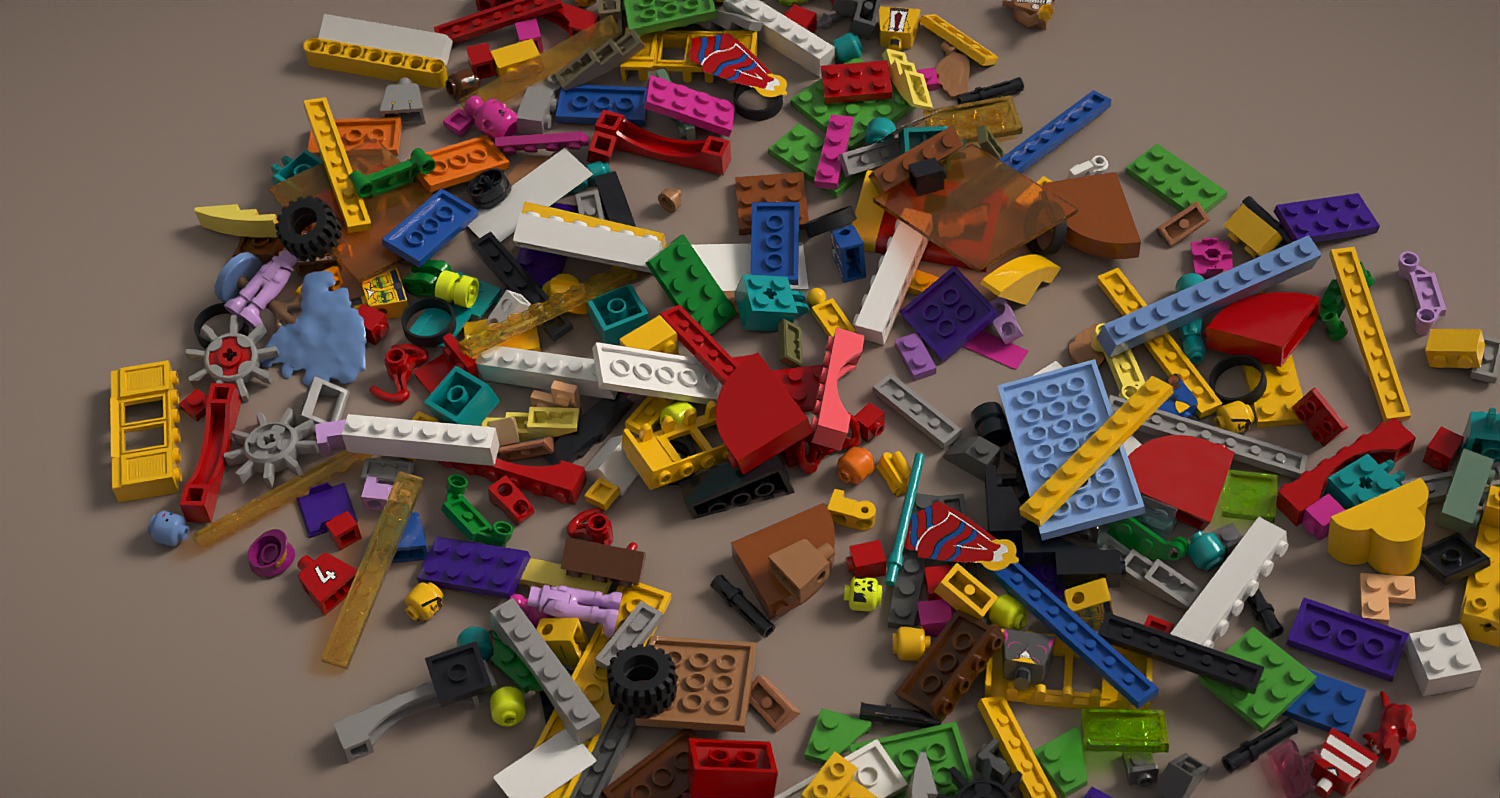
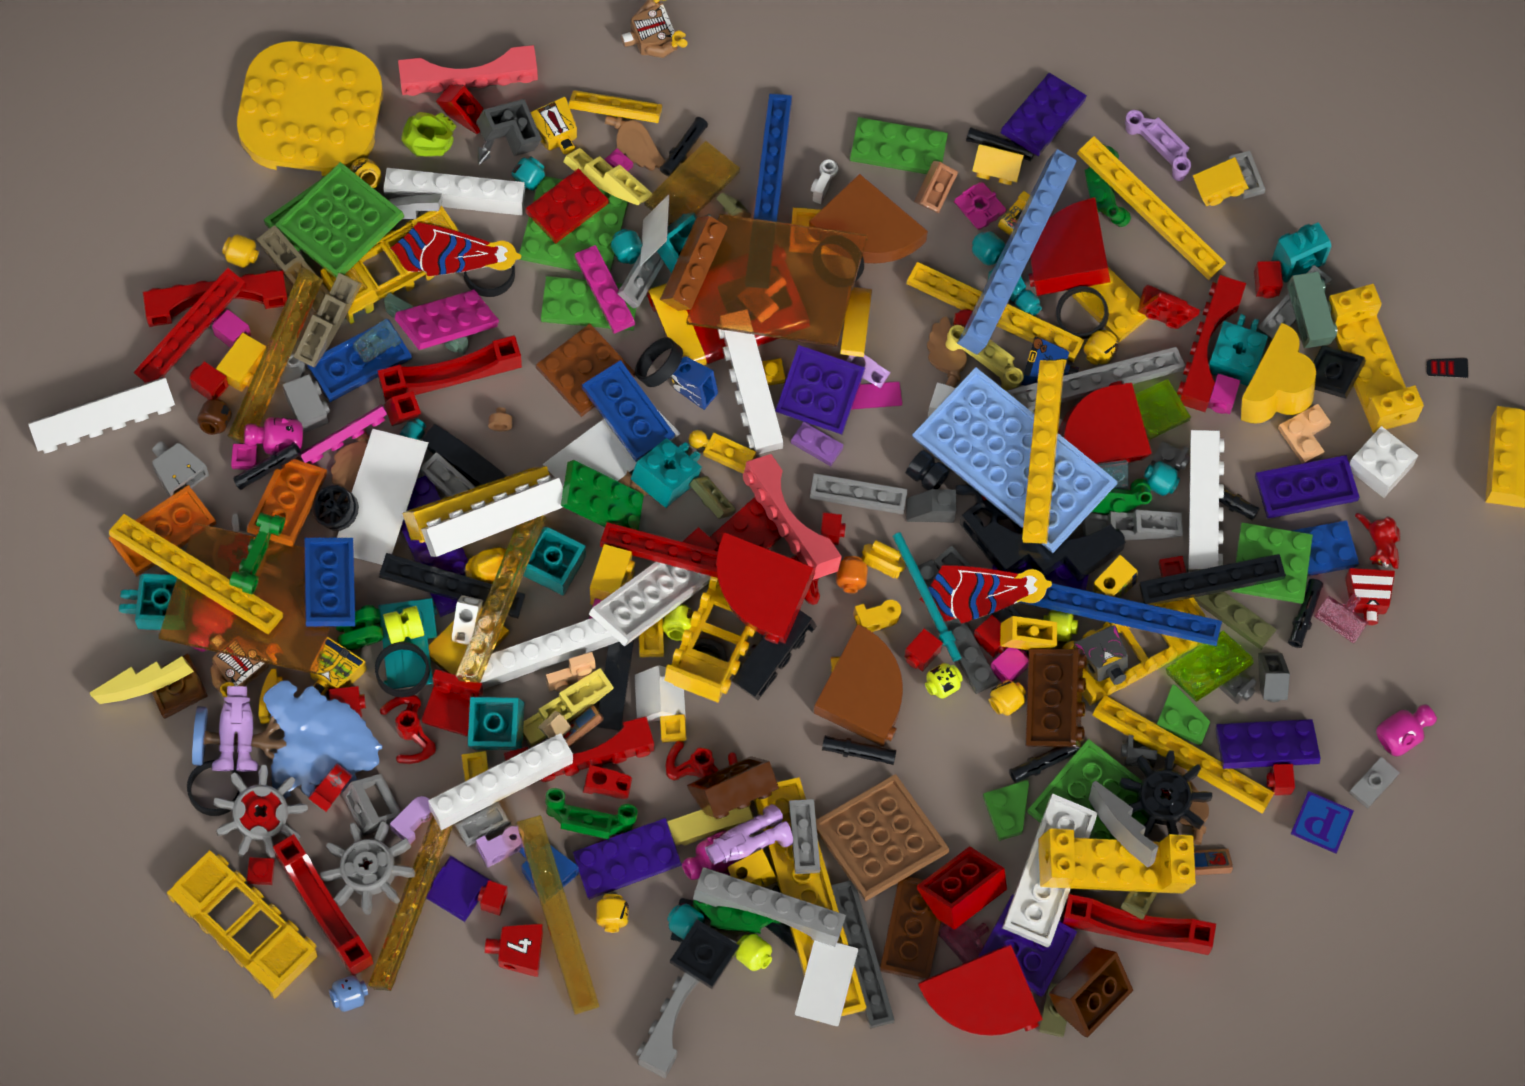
camera: 45 degrees left, 15 degrees up
(270, 553) = (451, 957): magenta piece -> none
(297, 218) = (220, 645): black tyre -> none
(297, 374) = (330, 787): none -> red leg
(375, 62) = (99, 440): yellow beam -> none
(466, 132) = (276, 461): none -> black pin
(623, 93) = (376, 341): none -> clear light blue leg
(646, 696) = (845, 848): black tyre -> none
(771, 703) = (943, 813): nougat slope -> none
(801, 567) = (890, 692): medium nougat torso -> none
(803, 17) = (463, 165): red brick -> none
(926, 176) = (719, 276): black brick -> none
(1187, 707) = (1237, 617): none -> olive plate

